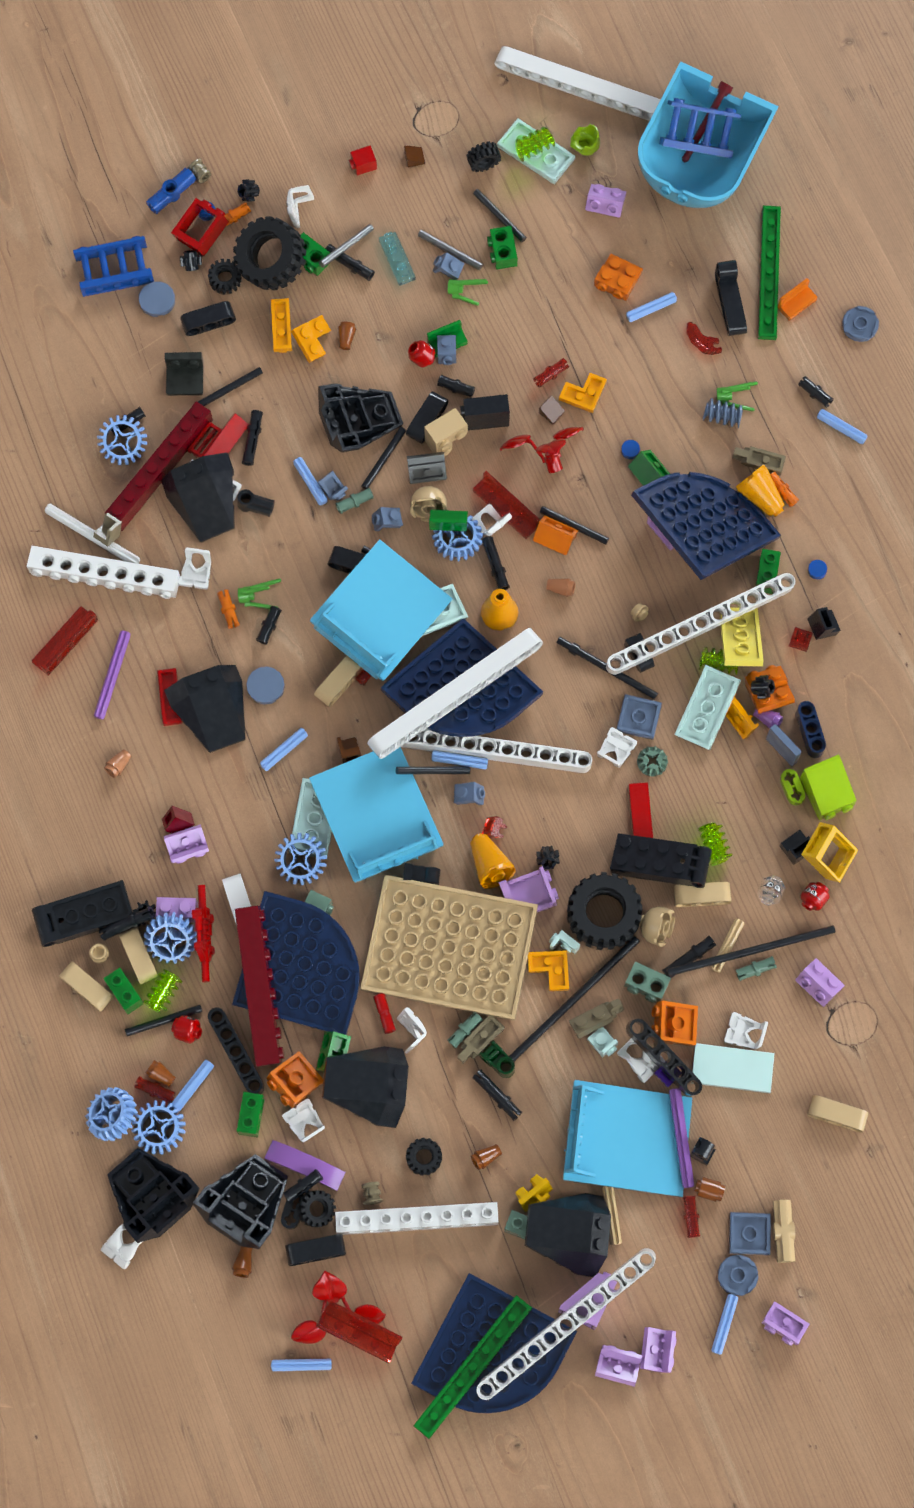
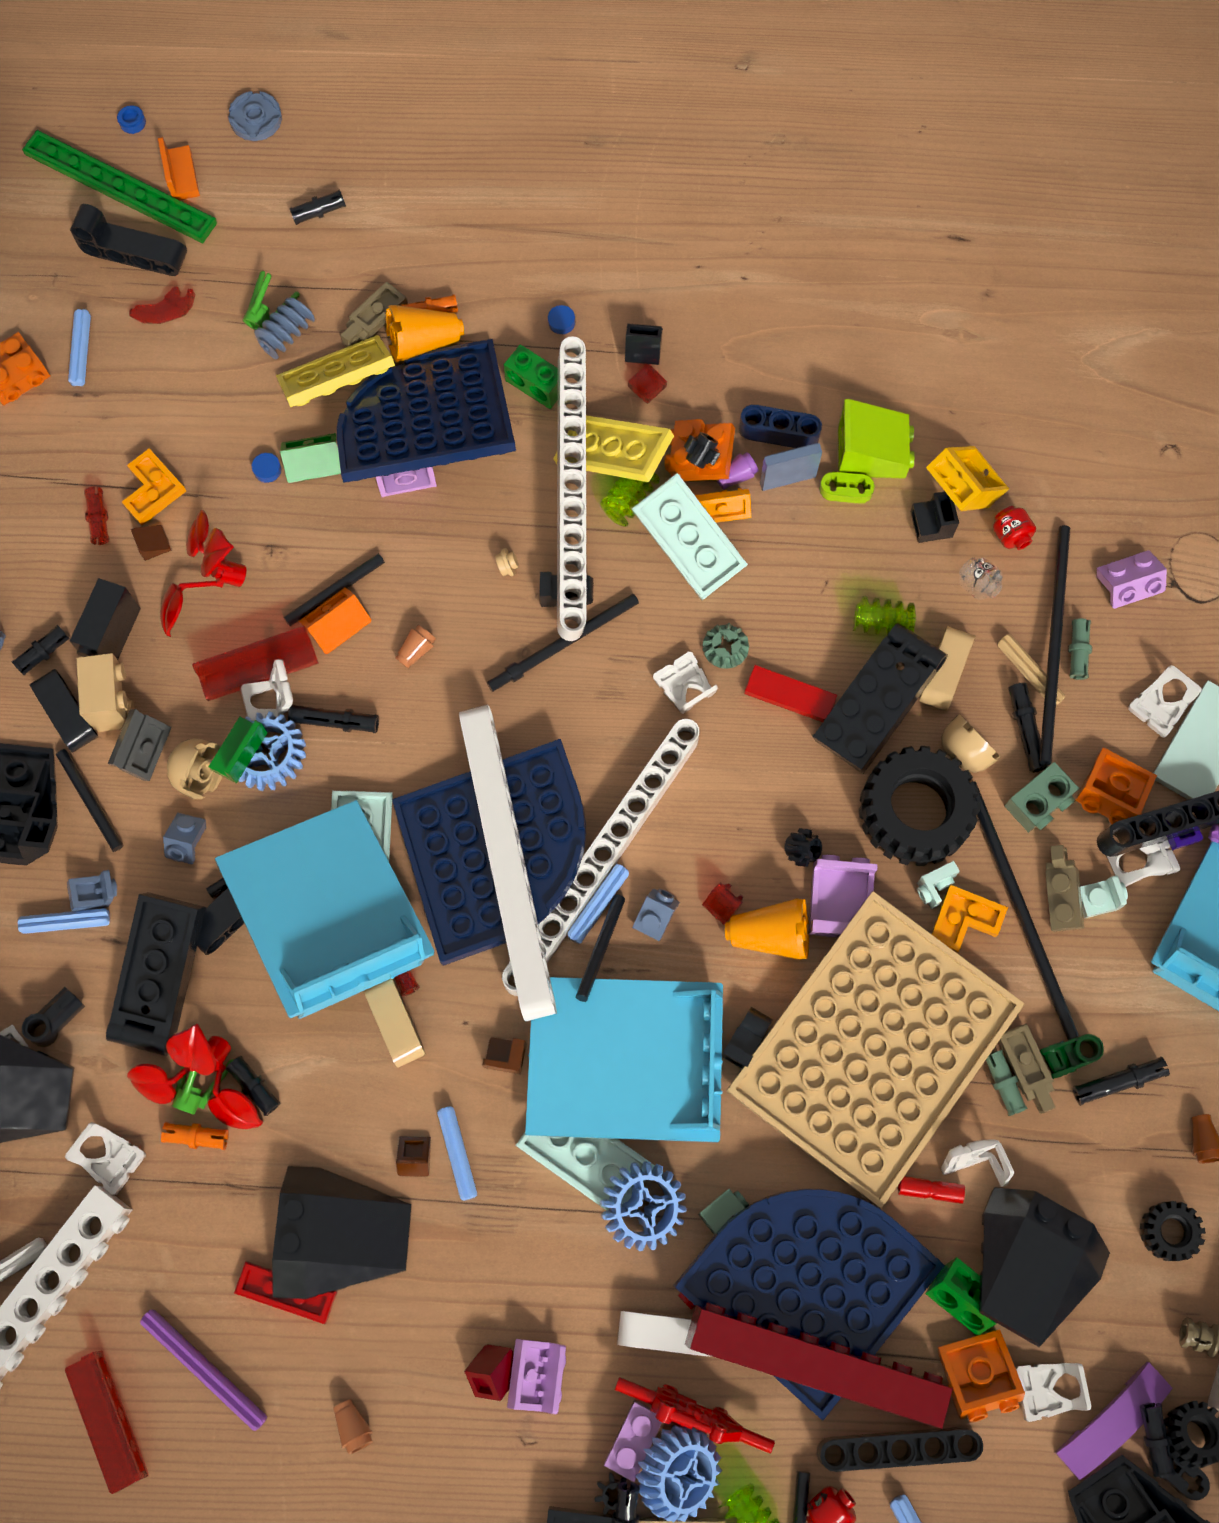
camera: 65 degrees left, 0 degrees up
(250, 1114) = (1010, 1472): green brick -> none
(265, 685) = (343, 1134): sand blue tile -> none
(267, 579) = (197, 1054): none -> red plant
(271, 727) = (413, 1156): none -> reddish brown slope
(304, 542) = (155, 972): none -> black hinge
(354, 500) = (130, 870): sand green pin -> none
(499, 610) = (406, 745): light orange cone -> none
(639, 717) = (653, 634): sand blue tile -> none
(709, 456) = (335, 371): none -> light yellow plate
(818, 255) = (131, 119): none -> blue tile
(842, 426) = (382, 200): light blue axle -> none

